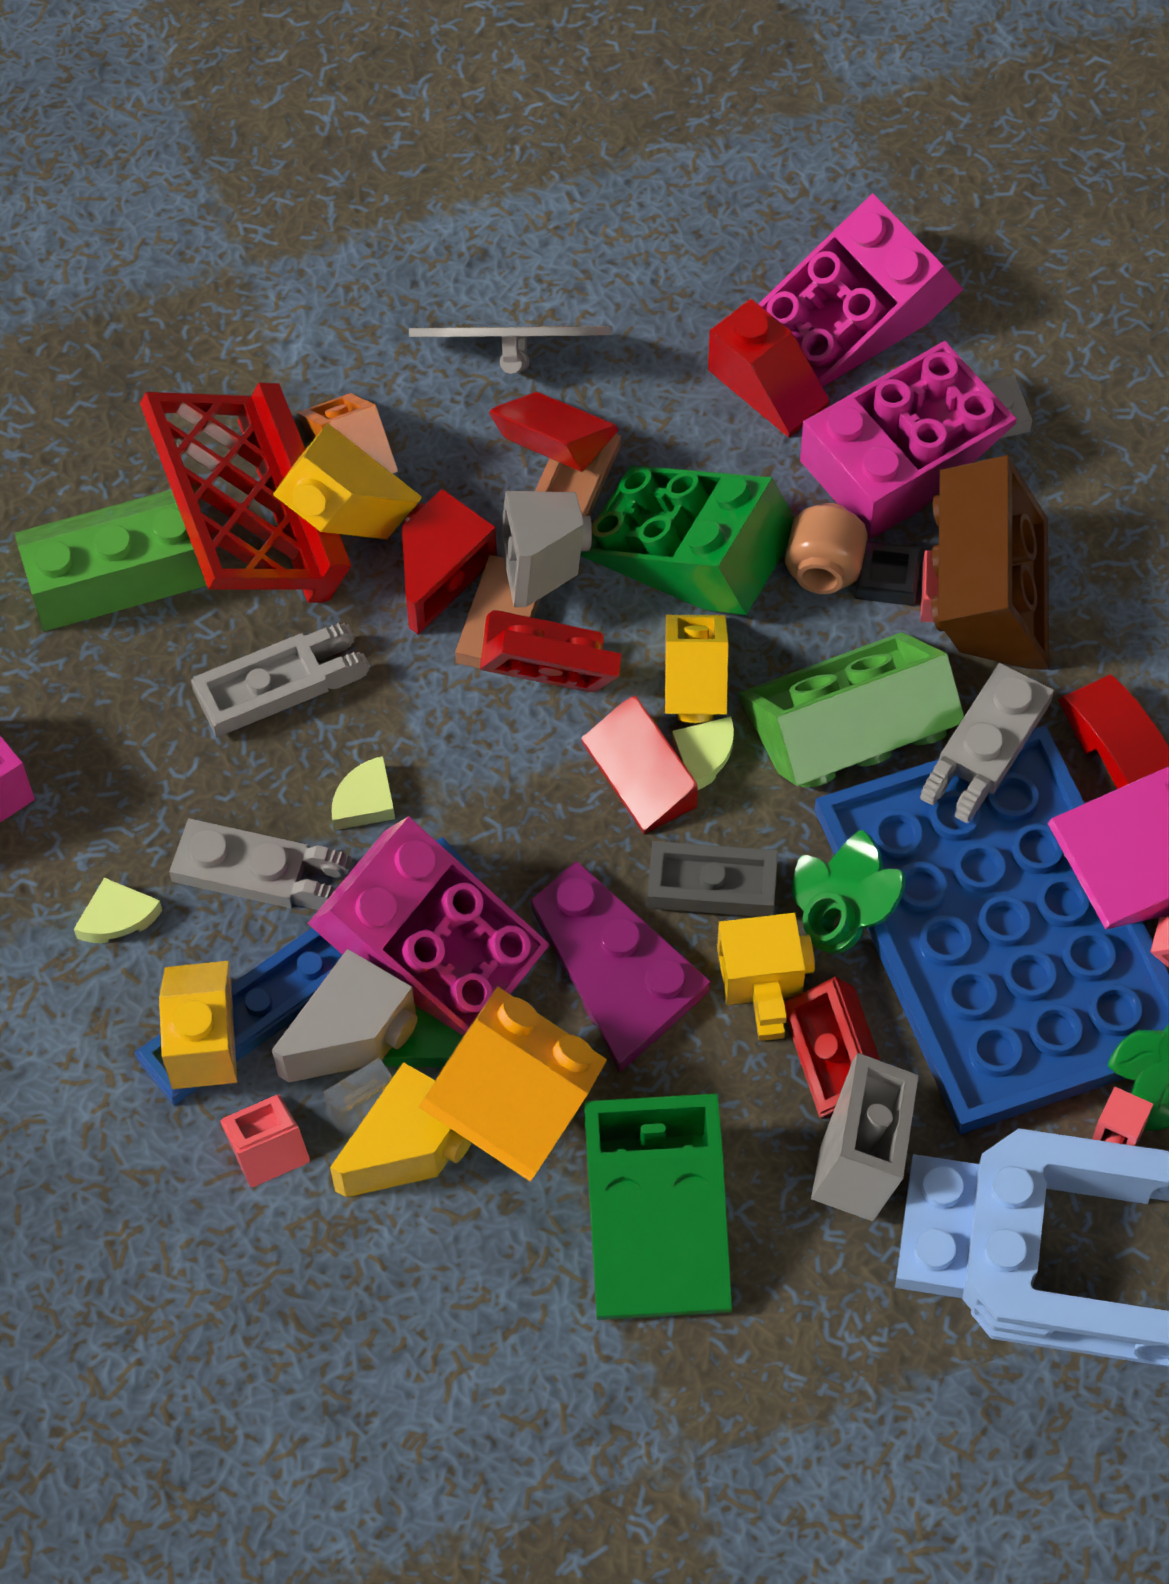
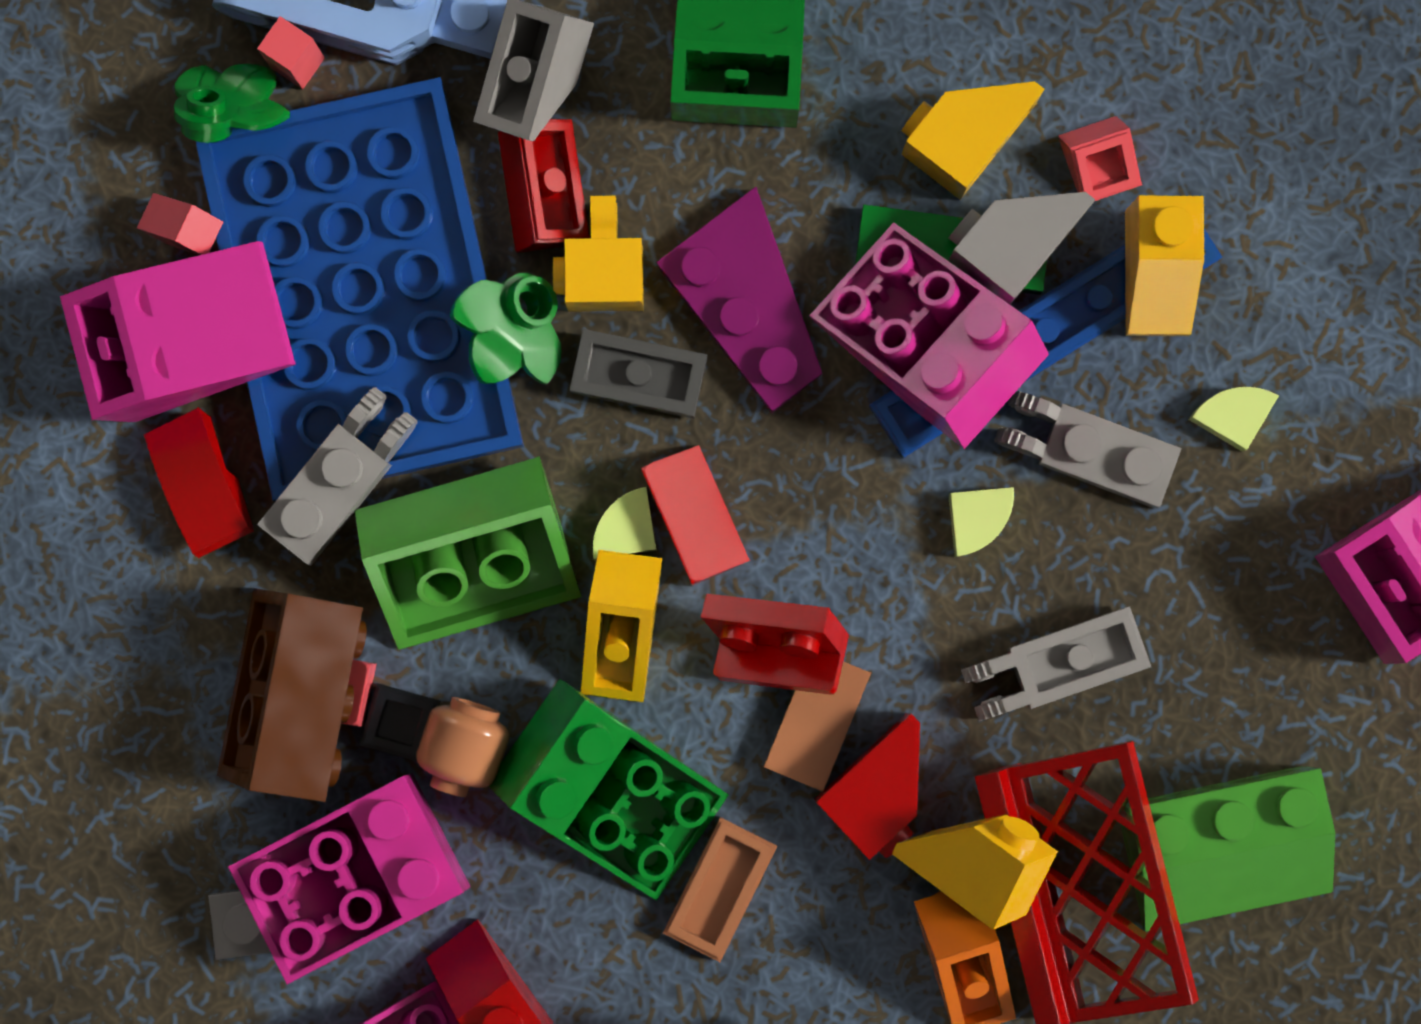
camera: 175 degrees left, 25 degrees up
(355, 1095) = (1009, 176): clear tile -> none
(513, 1083) = (865, 143): light orange slope -> none
(542, 542) = (767, 781): light grey slope -> none
(553, 429) = (735, 941): red slope -> none

